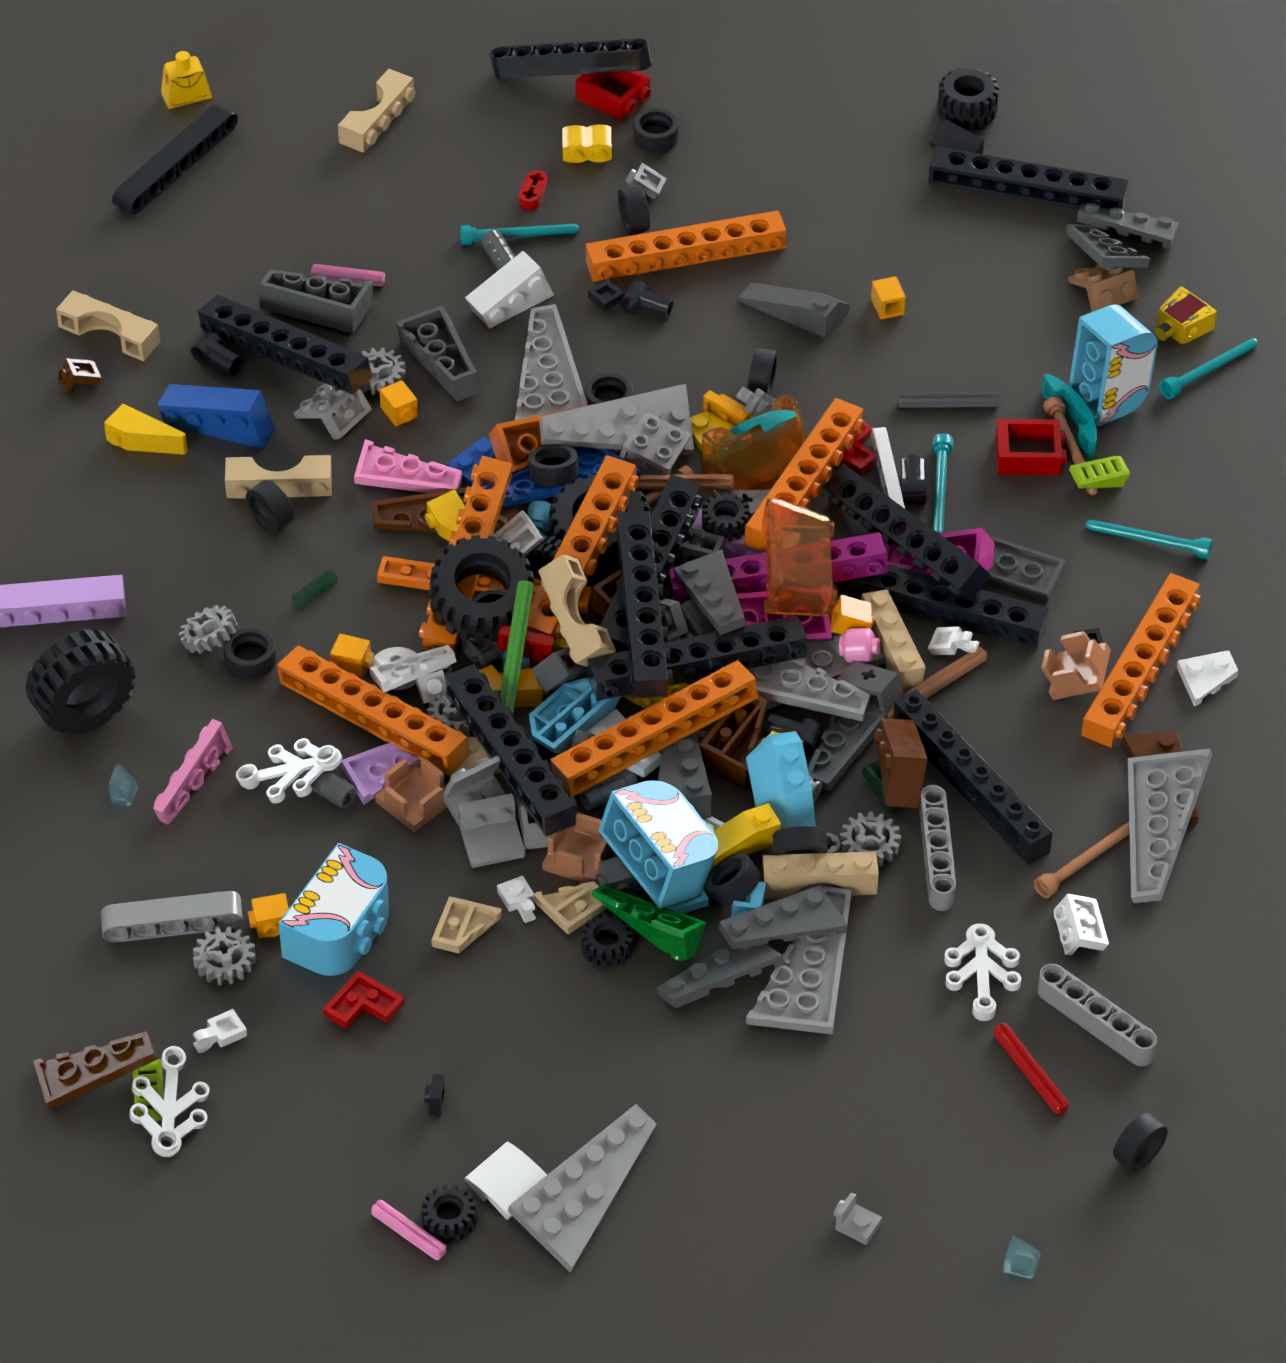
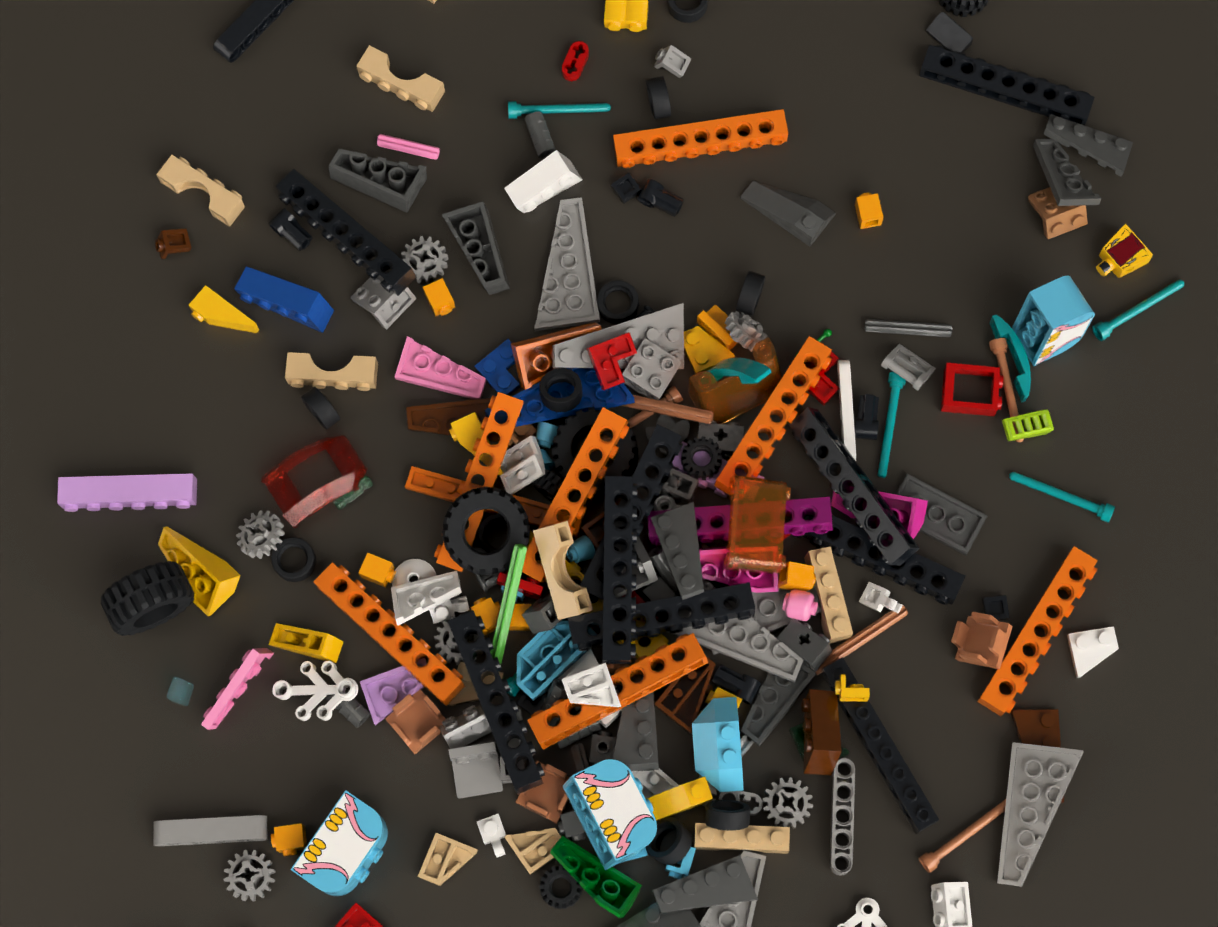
camera: 10 degrees right, 25 degrees up
(156, 678) = (208, 574): none -> yellow wedge
(274, 727) = (306, 642): none -> yellow slope
(307, 567) = (287, 496): none -> clear red wedge
(360, 223) = (422, 91): none -> tan arch
(593, 611) = (581, 550): none -> medium azure hat
(604, 427) = (605, 358): none -> red plate
(624, 716) = (592, 687): none -> white wing
(931, 712) = (855, 693): none -> yellow bracket
(953, 428) = (908, 366): none -> light grey plate

